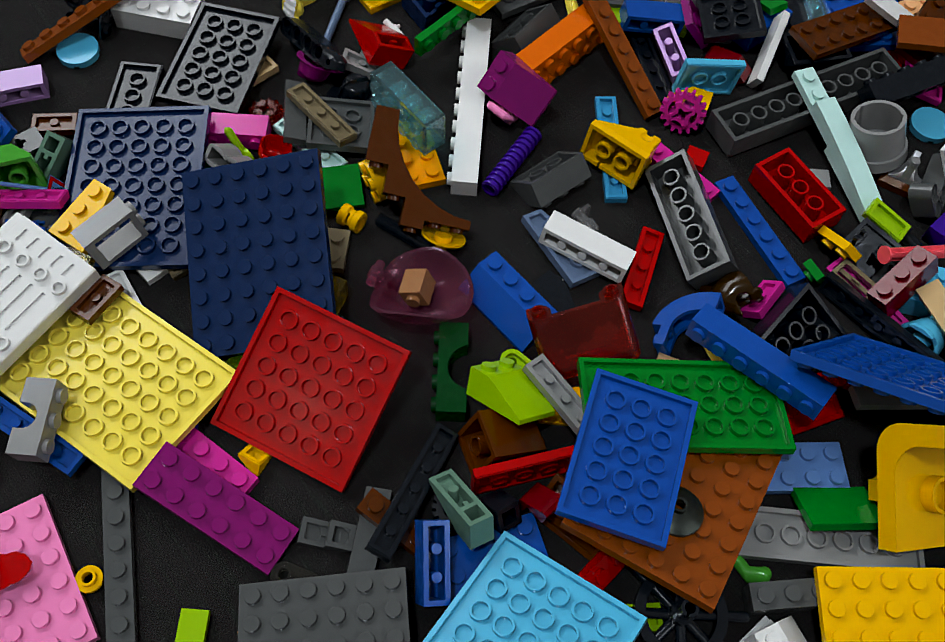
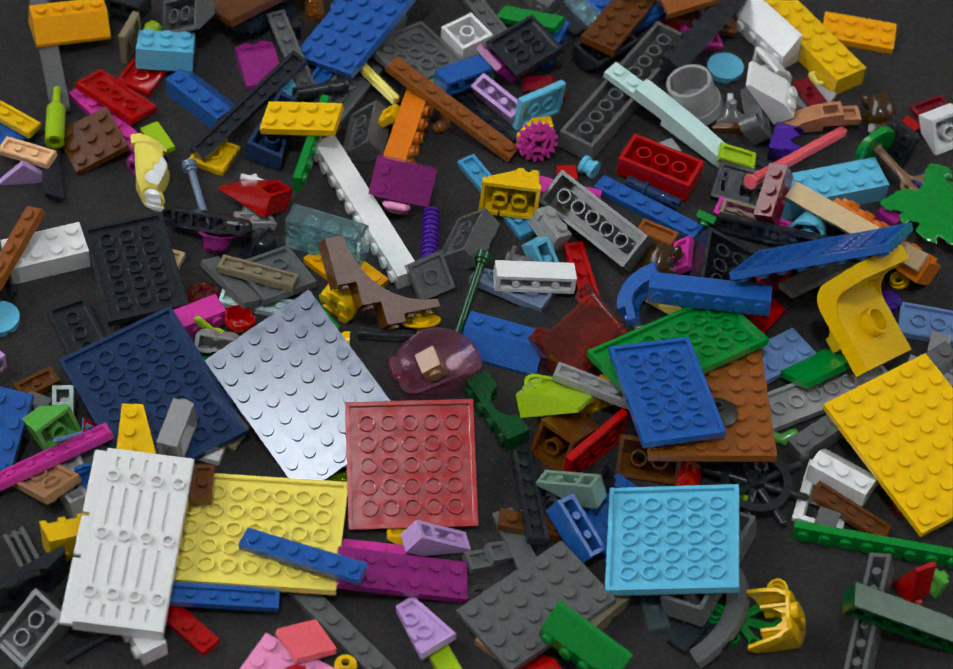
camera: 30 degrees left, 10 degrees down
(36, 441) = (227, 562): light grey arch -> none
(66, 529) = (306, 641): none -> coral tile
(123, 435) = (303, 556): none -> blue plate
(194, 585) = (423, 627): none -> lavender wing
(281, 485) = (432, 539): none -> lavender slope
(484, 195) = (430, 276): none -> dark grey tile
(539, 501) = (622, 457): dark red slope -> none
(544, 203) = (481, 258): none -> dark green piece
(551, 21) = (389, 115): none -> yellow plate
(602, 56) = (442, 124): none -> dark orange arm
(613, 223) = (540, 250): none -> medium azure slope
(638, 204) = (548, 224): none -> light grey brick
(722, 160) = (589, 167): none -> medium azure wheel
(751, 262) = (658, 232): none -> dark orange tile
(768, 49) = (570, 62): white tile -> none
(768, 211) = (653, 192): none -> dark blue pin
(841, 245) = (716, 189): yellow plate -> none

